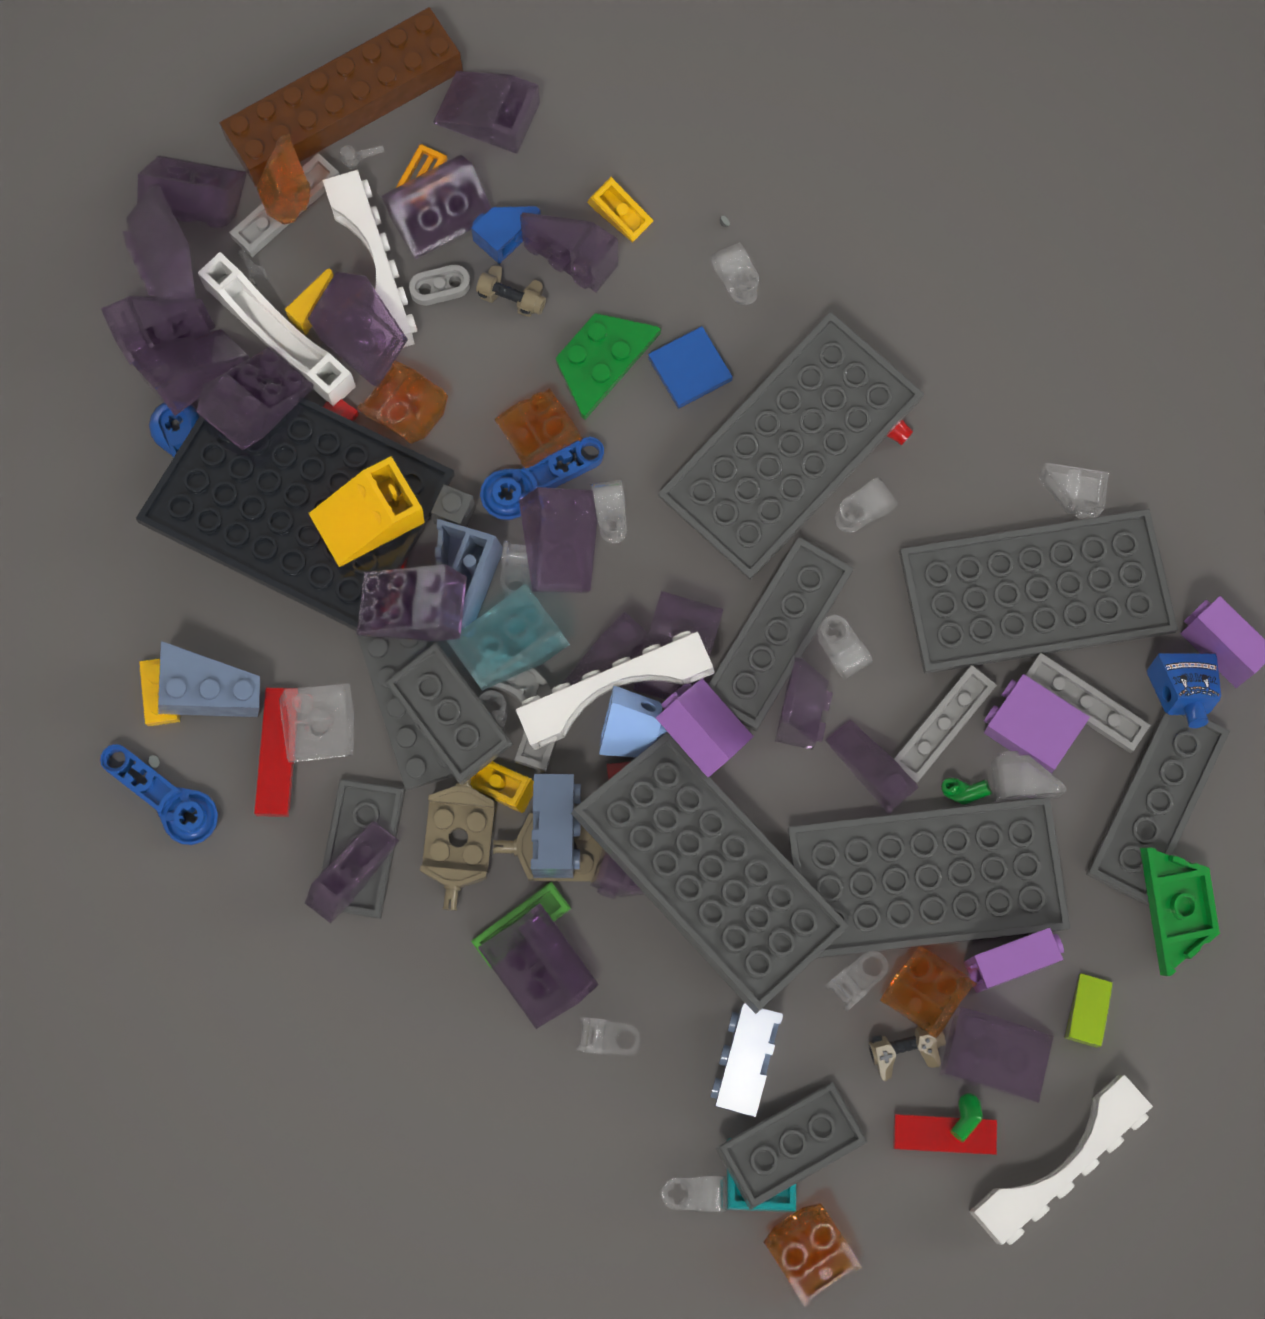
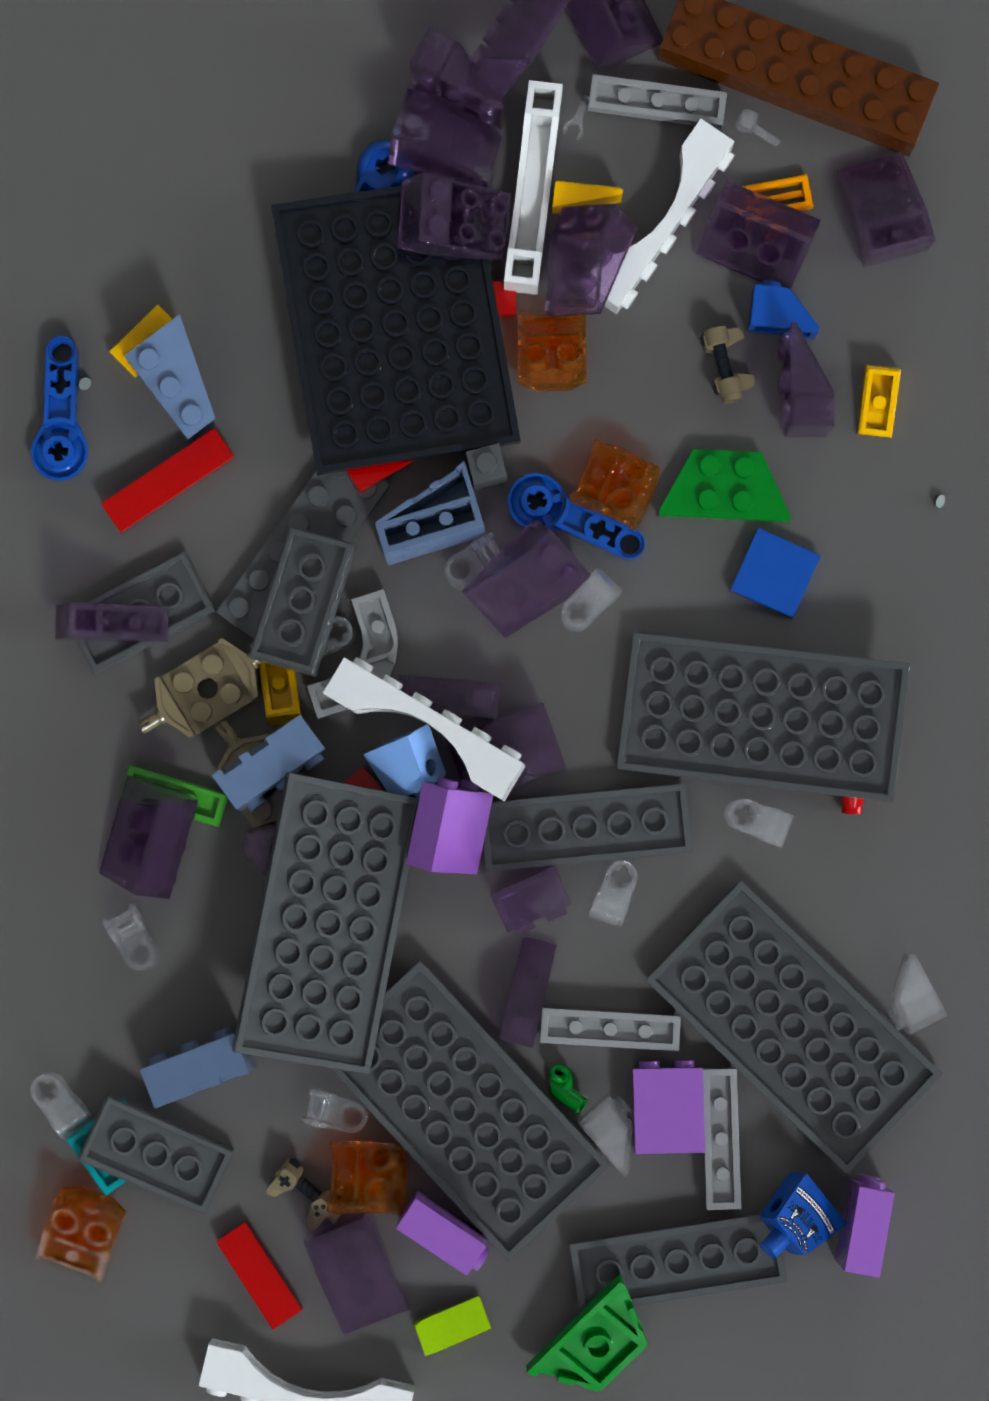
camera: 55 degrees right, 10 degrees up
(283, 183) = (667, 88): clear orange slope -> none
(318, 722) = (214, 497): clear slope -> none
(367, 512) = (420, 399): yellow slope -> none
(413, 603) = (369, 500): clear purple slope -> none
(439, 283) = (685, 296): light grey plate -> none
(508, 639) = (404, 603): clear light blue slope -> none
(737, 273) = (897, 545): clear piece -> none
(970, 1115) = (288, 1285): green arm -> none

